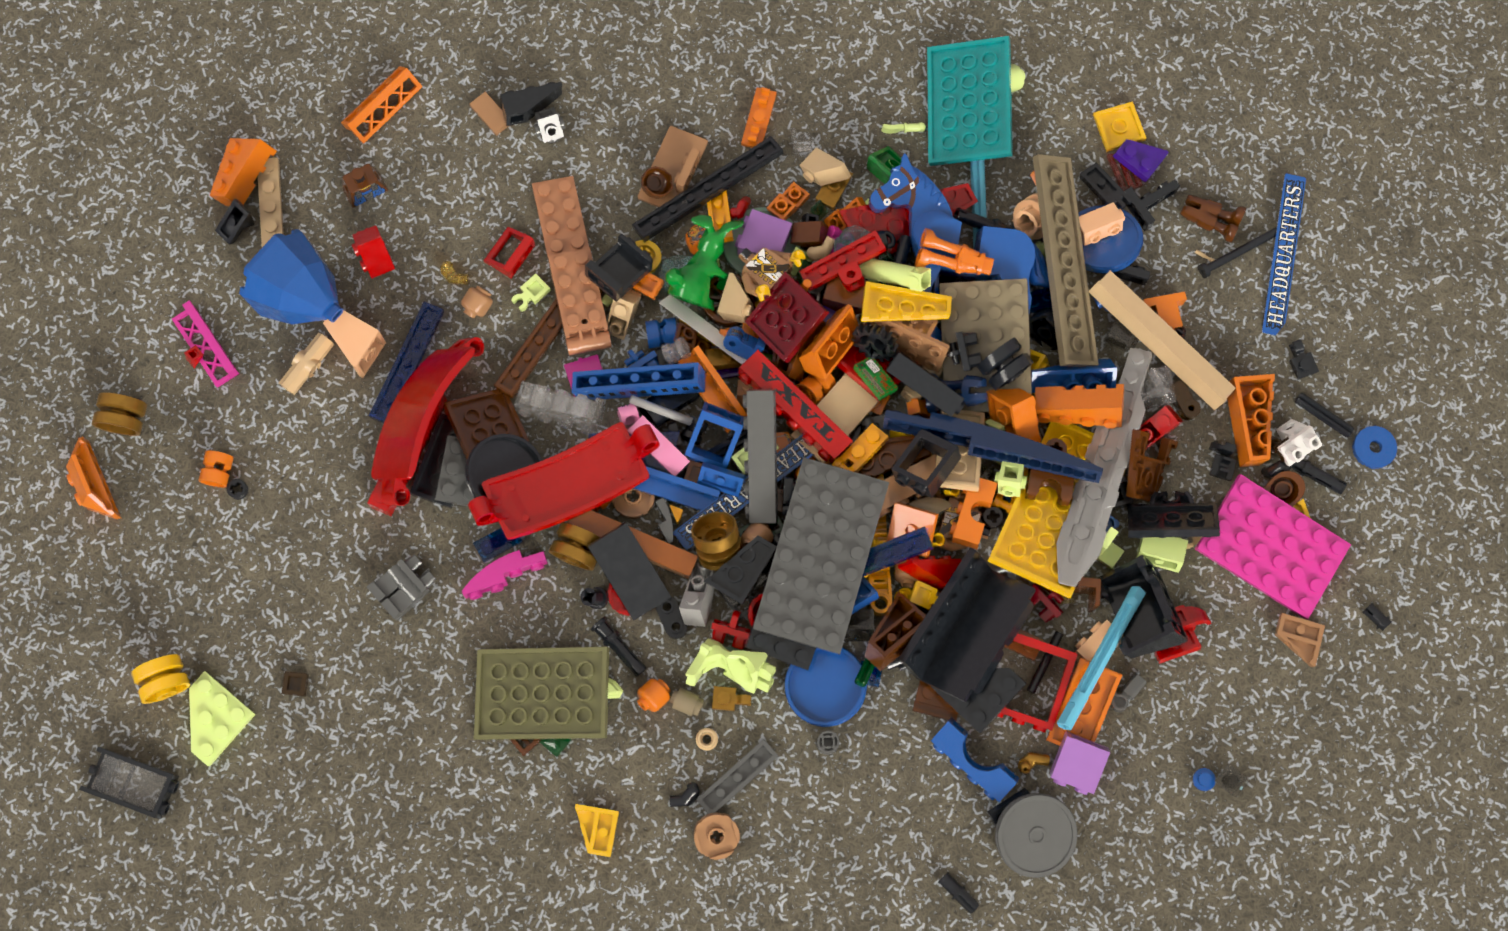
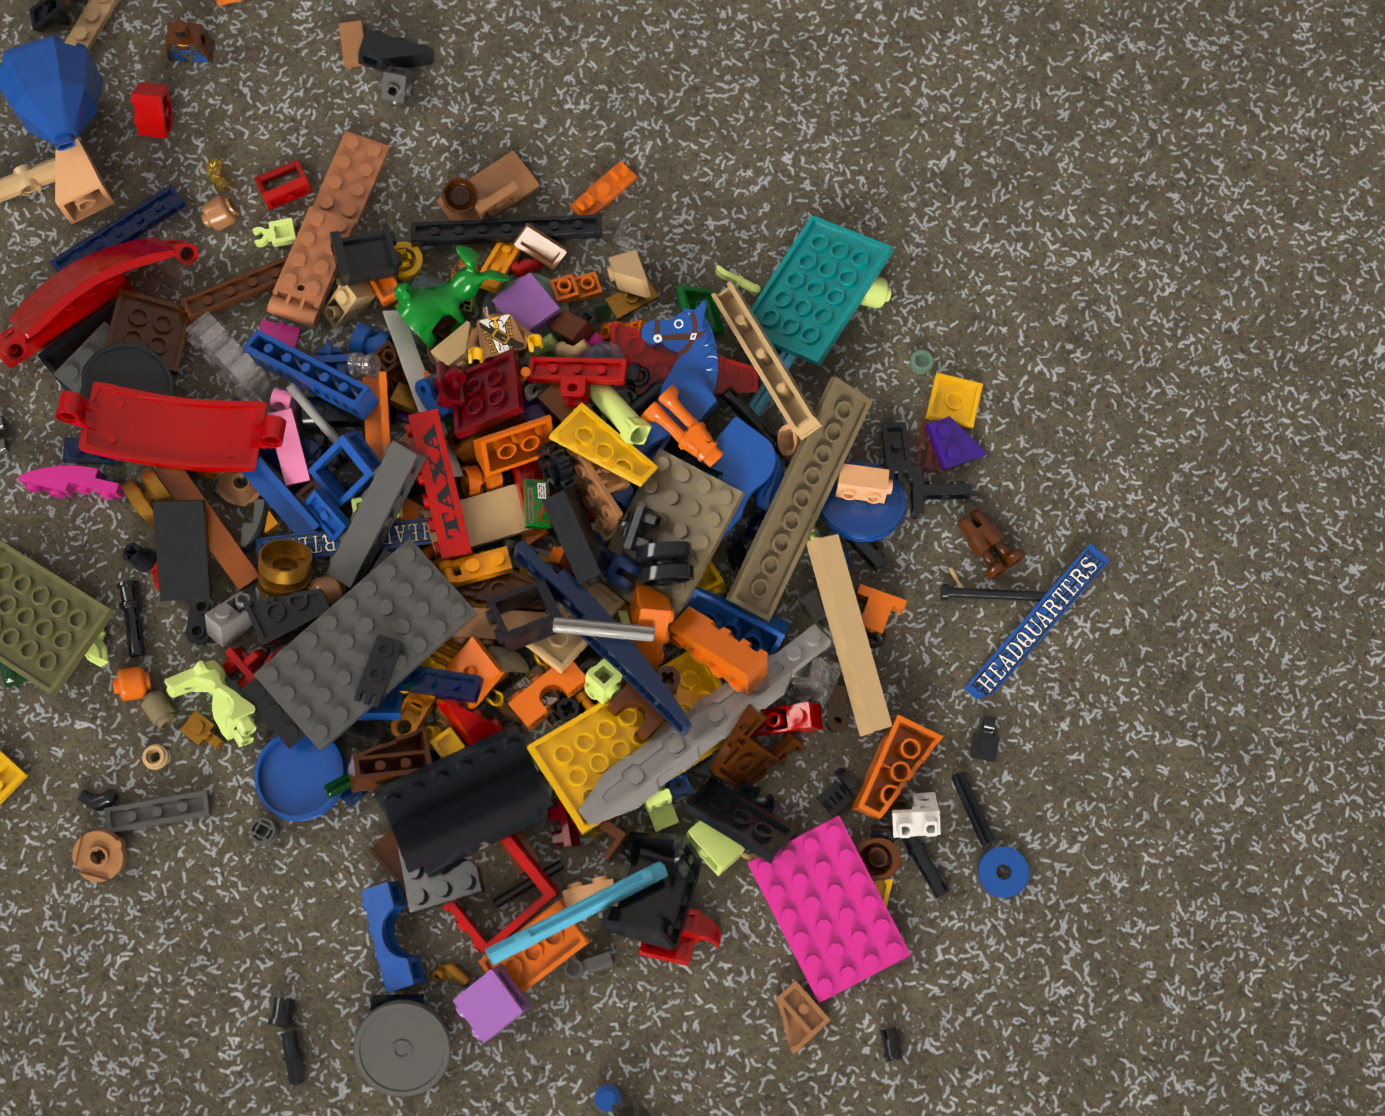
camera: 30 degrees right, 0 degrees up
(742, 186) = (540, 246): none -> tile
(752, 323) = (450, 385): none -> dark red hips
(847, 566) = (379, 670): none -> black hinge
(930, 865) = (282, 1013): none -> black bush
(974, 173) = (767, 361): none -> tan tile
(993, 438) = (603, 629): none -> light grey axle
(1077, 111) = (921, 361): none -> sand green tile

